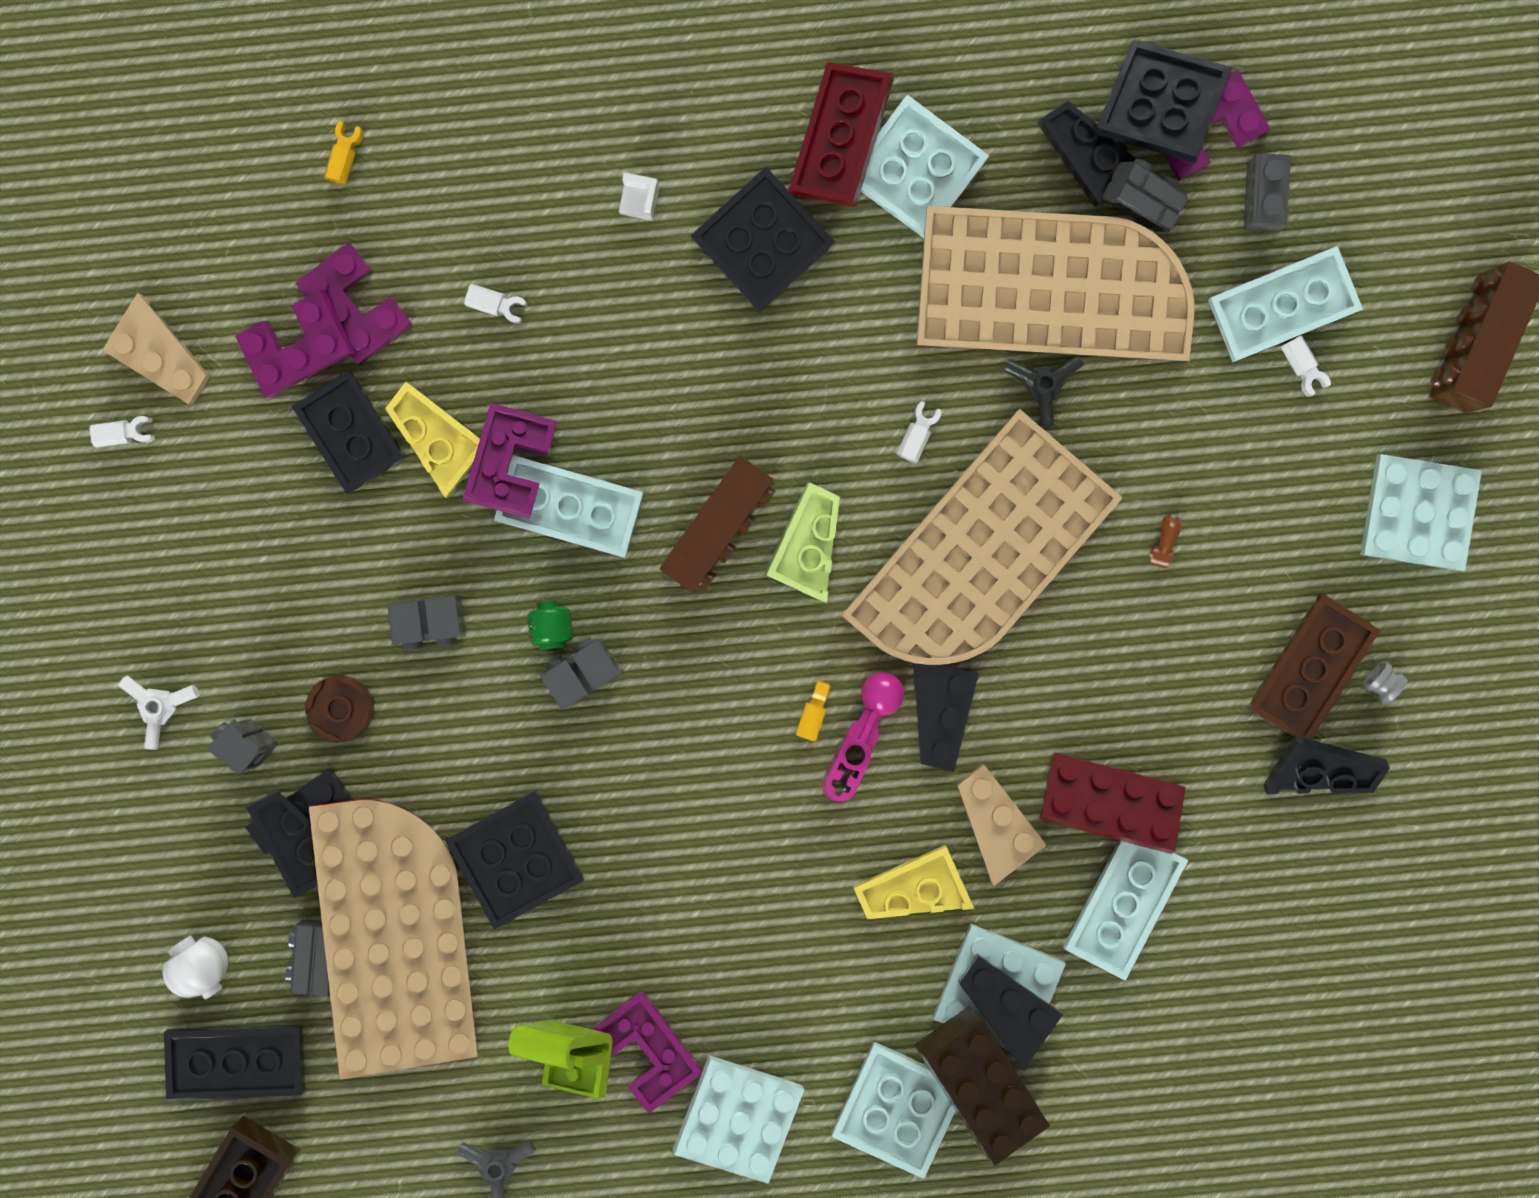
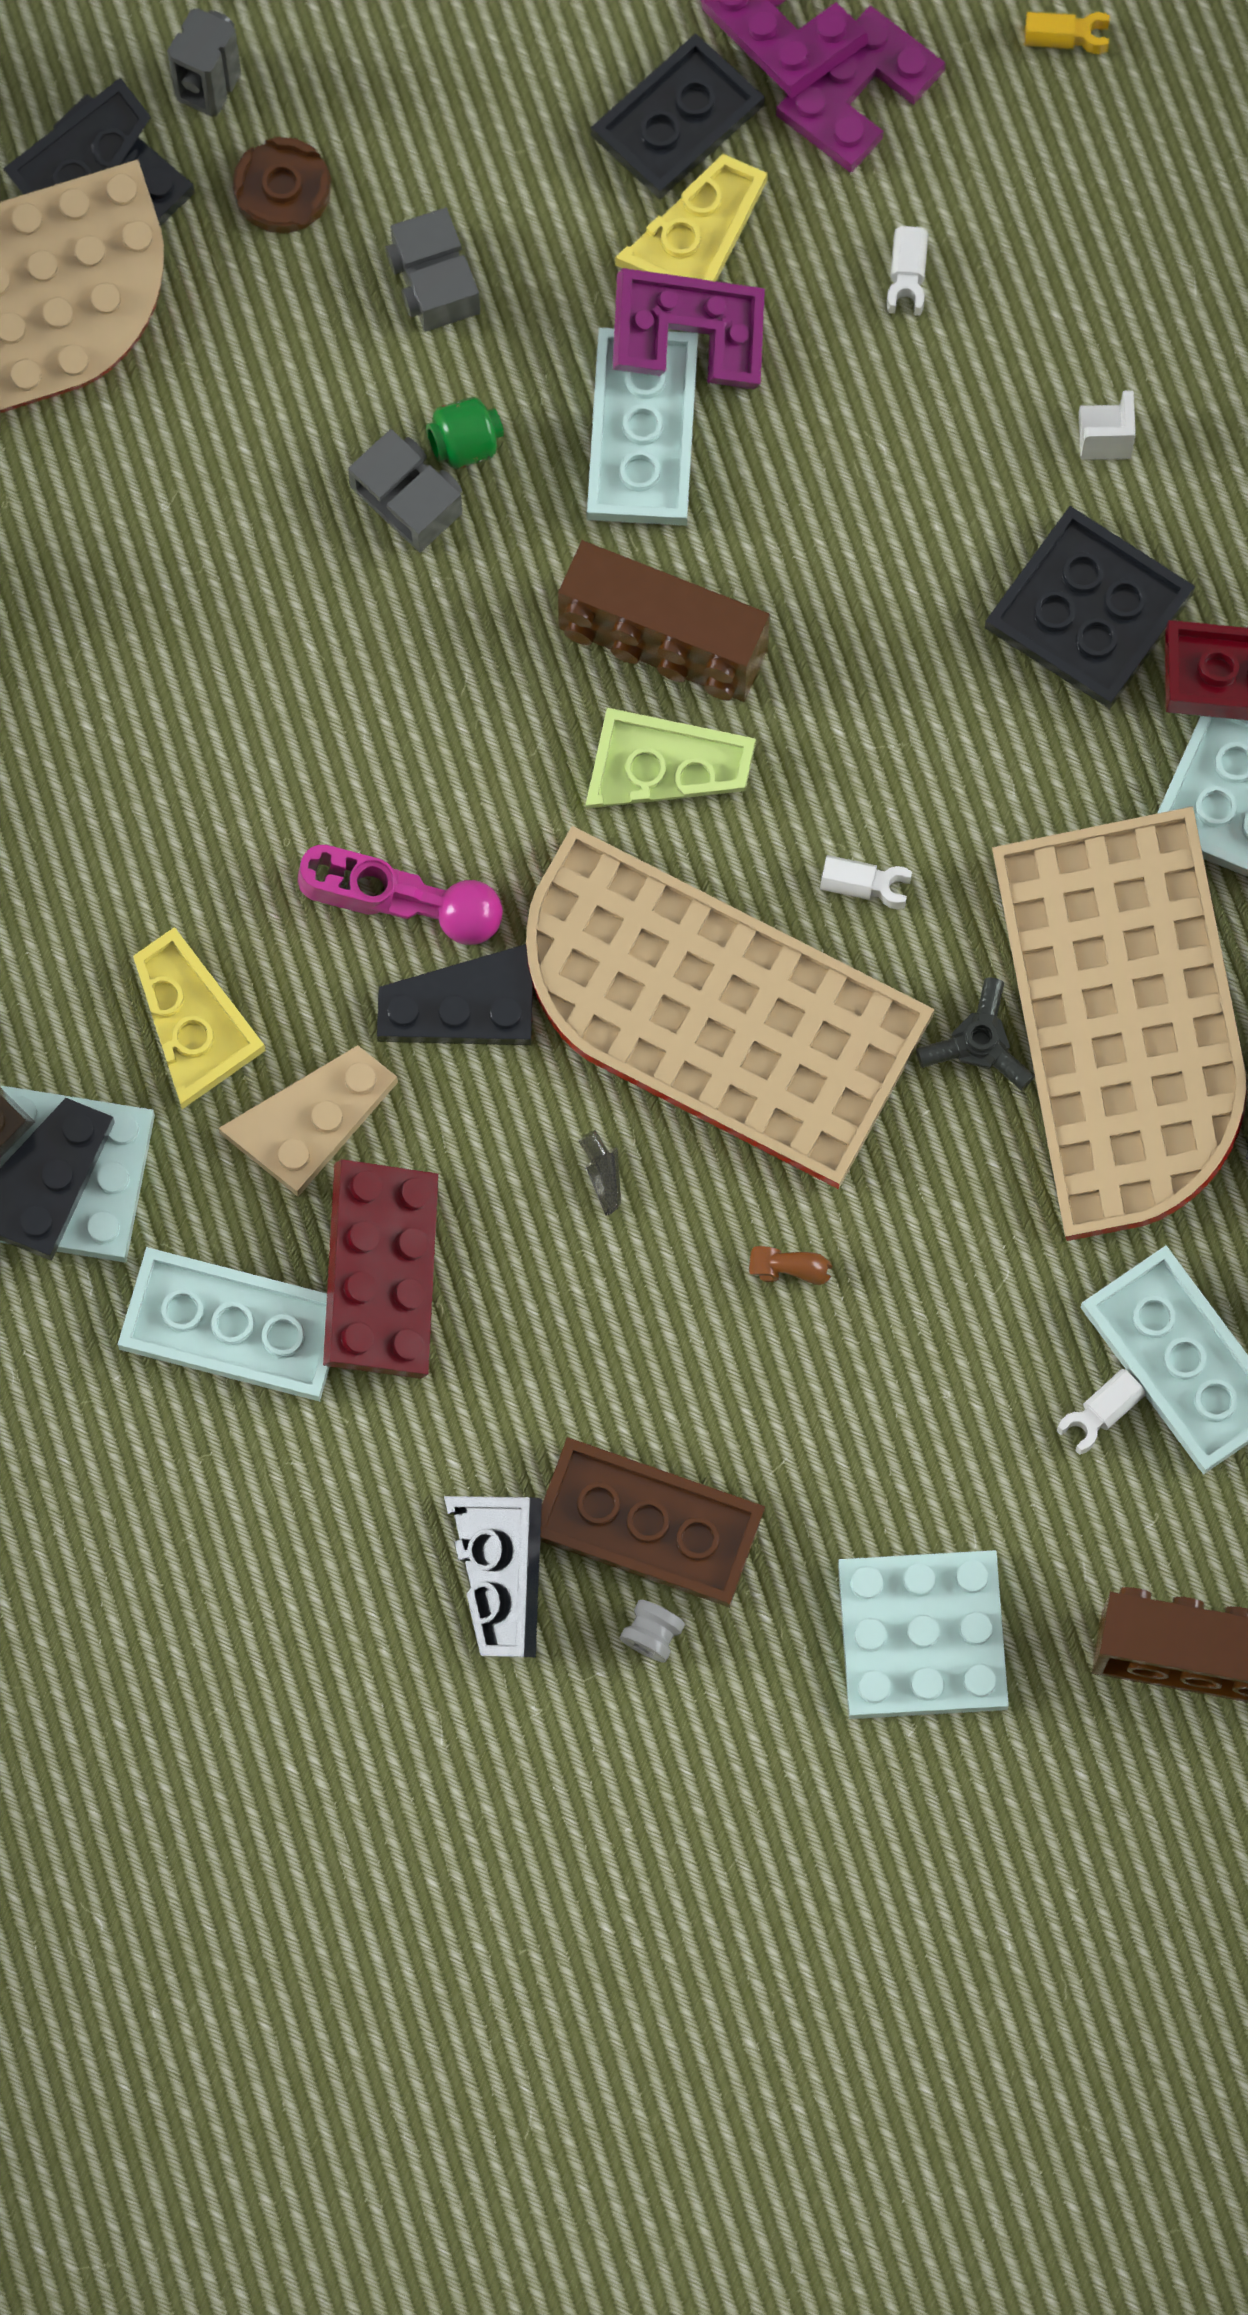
camera: 80 degrees right, 15 degrees down
(515, 859) = (116, 458): black plate -> none
(813, 713) = (422, 822): yellow bar -> none
(1075, 646) = (603, 1171): none -> clear smoke bar

